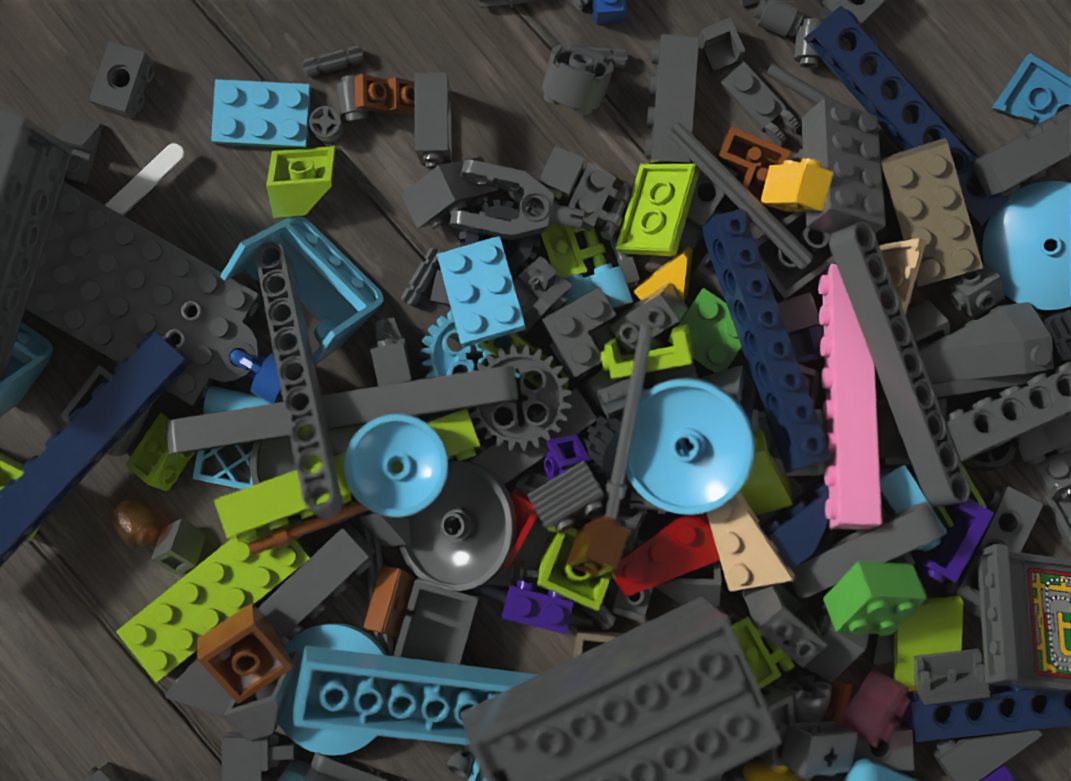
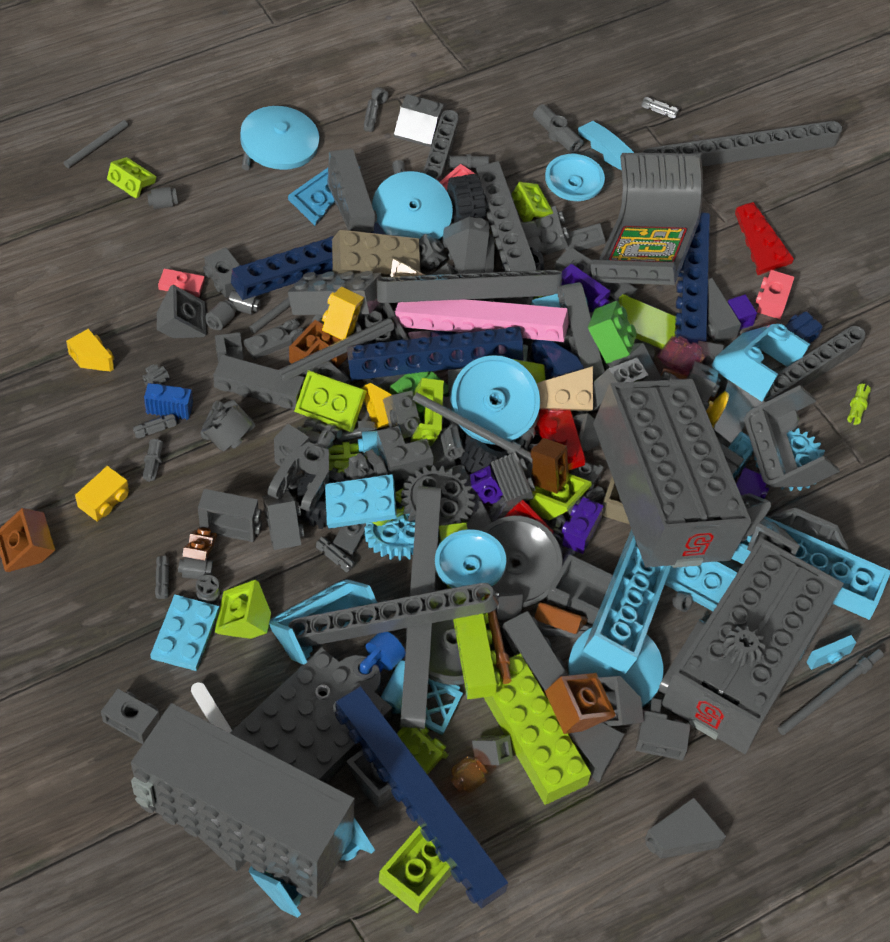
camera: 85 degrees left, 30 degrees down
(391, 354) = (392, 576): dark grey hinge -> none
(950, 676) = (668, 314): dark grey hinge -> none

